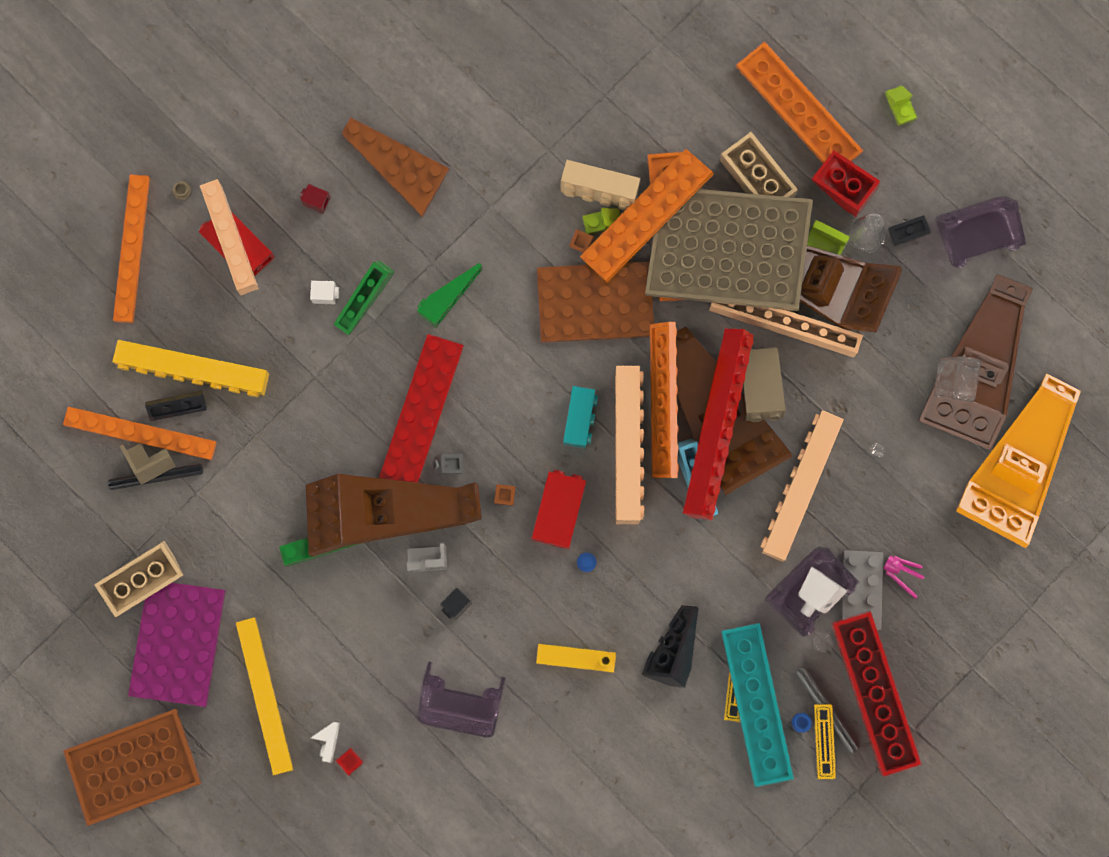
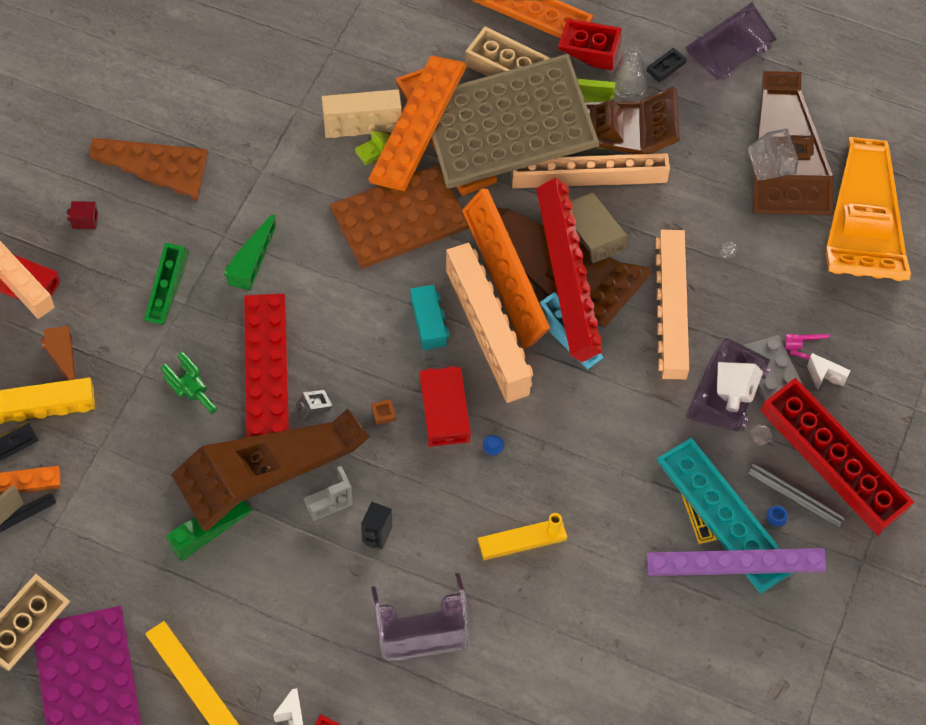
camera: 25 degrees left, 20 degrees down
(252, 329) = (60, 350): none -> dark orange slope
(324, 292) = (123, 292): white brick -> none
(349, 405) = (188, 383): none -> green plant
(581, 241) = (363, 167): dark orange plate -> none
(674, 655) = (621, 500): black wedge -> none
(745, 754) = (736, 562): none -> medium lavender plate
(824, 741) = (807, 521): sticker -> none
(904, 601) = (821, 368): none -> white slope

